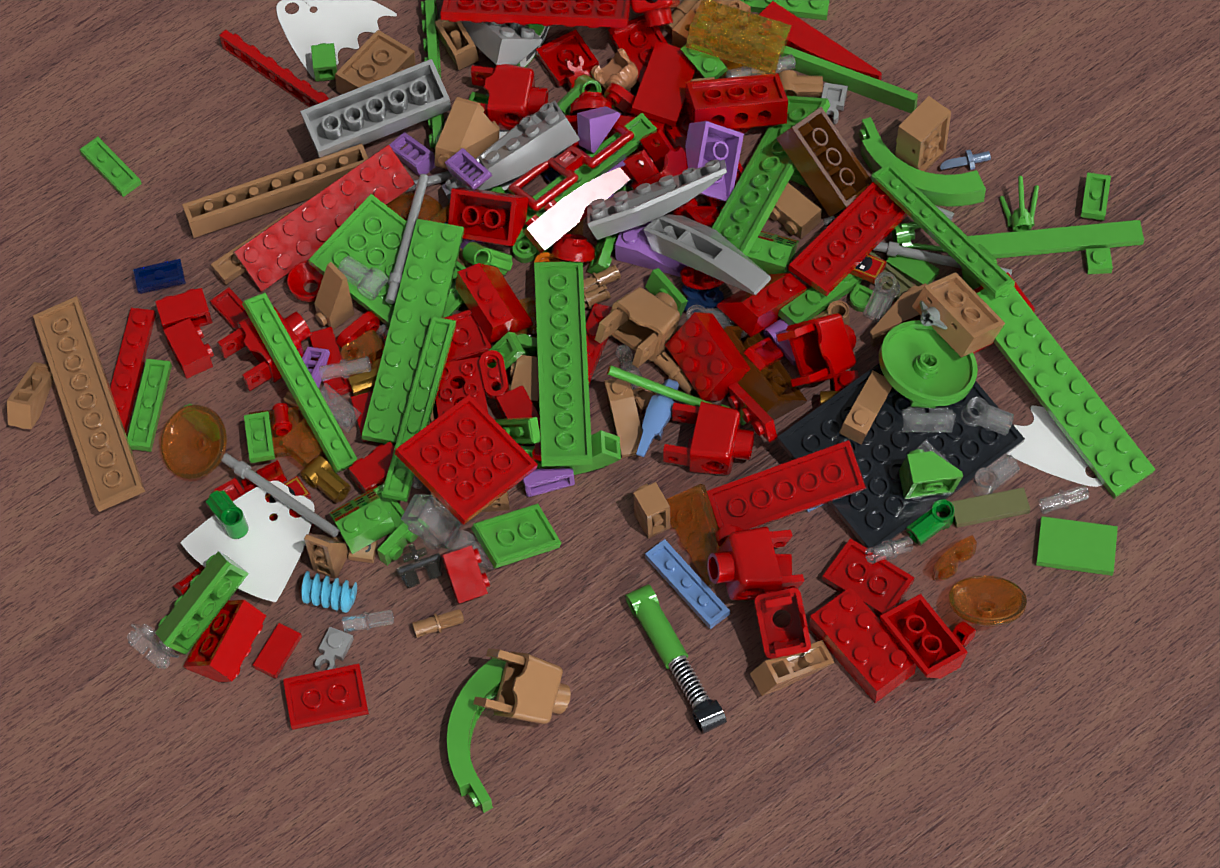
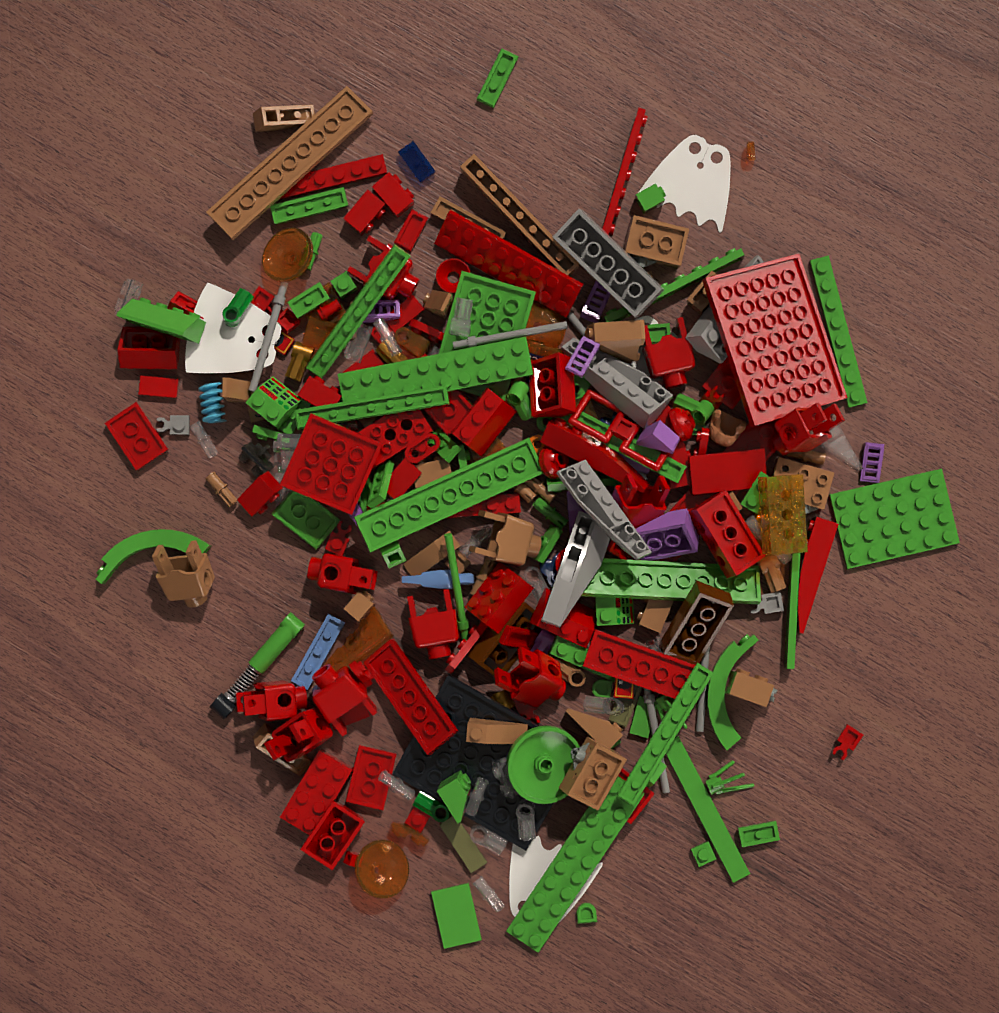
camera: 70 degrees right, 25 degrees up
(260, 395) = (344, 285): none -> bright green brick
(561, 516) = (337, 541): none -> red plate
(603, 513) = (348, 573): none -> red piece
(631, 279) = (550, 513): none -> bright green axle
(732, 633) = (265, 703): none -> red piece
(937, 545) = (417, 819): none -> red plate
(969, 159) = (755, 726): sand blue piece -> none
(1021, 75) = (849, 739): none -> red plate
(1125, 405) = (586, 913): none -> bright green tile

